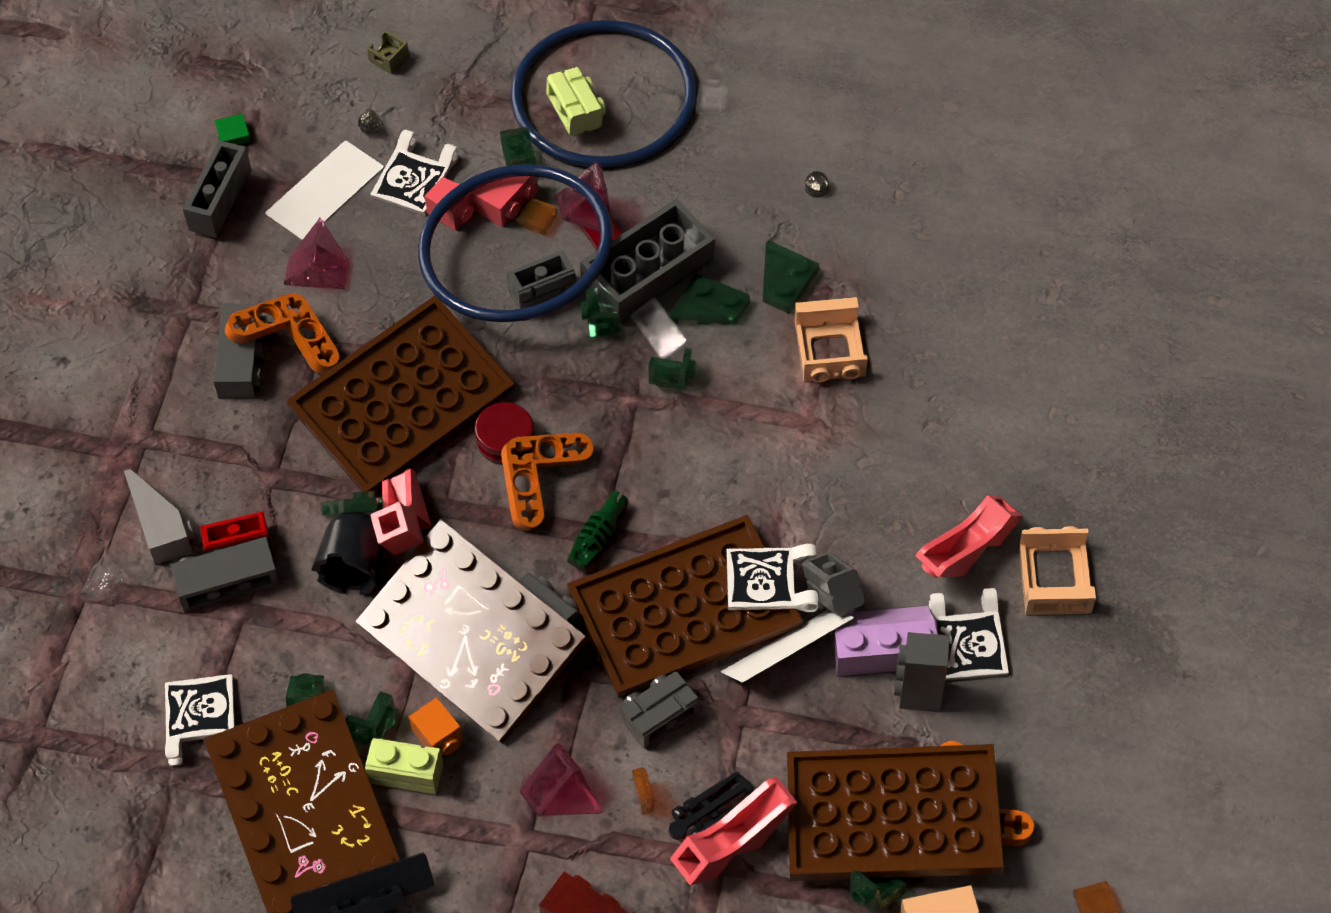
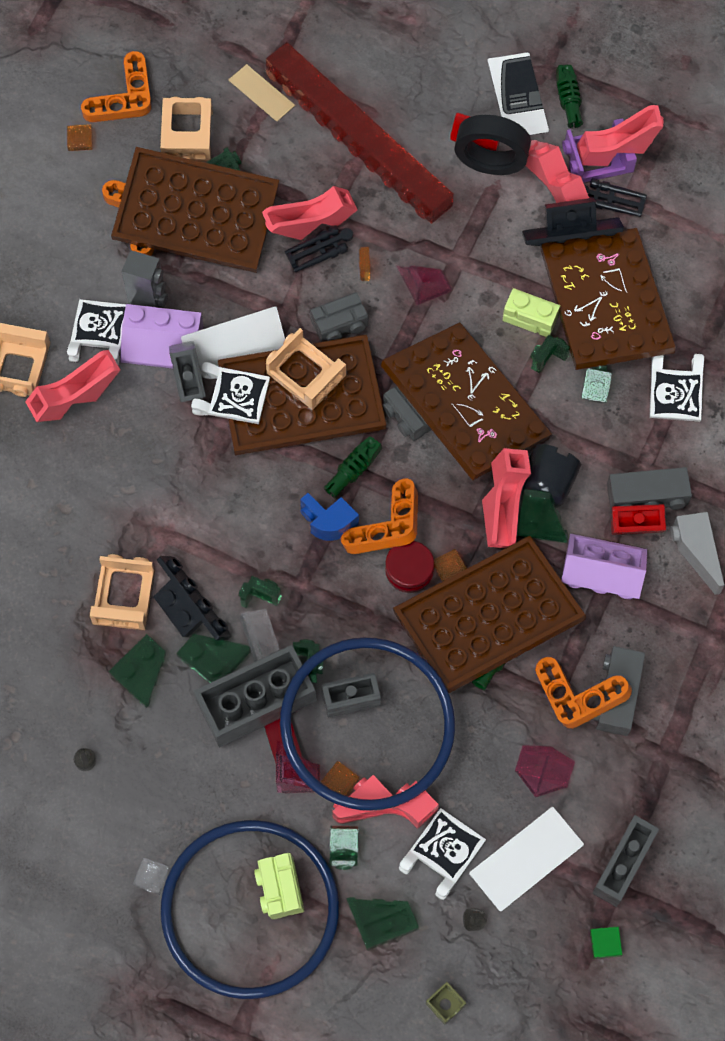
camera: 170 degrees left, 10 degrees up
(270, 479) = (604, 566): none -> lavender slope
(436, 727) = (504, 332): orange brick -> none
(457, 447) = (449, 565): none -> clear orange tile
(466, 104) = (381, 920): none -> clear green wing
(612, 458) = (328, 523): none -> blue brick
(661, 605) = (324, 382): none -> light nougat window
(751, 346) = (185, 604): none -> black bracket

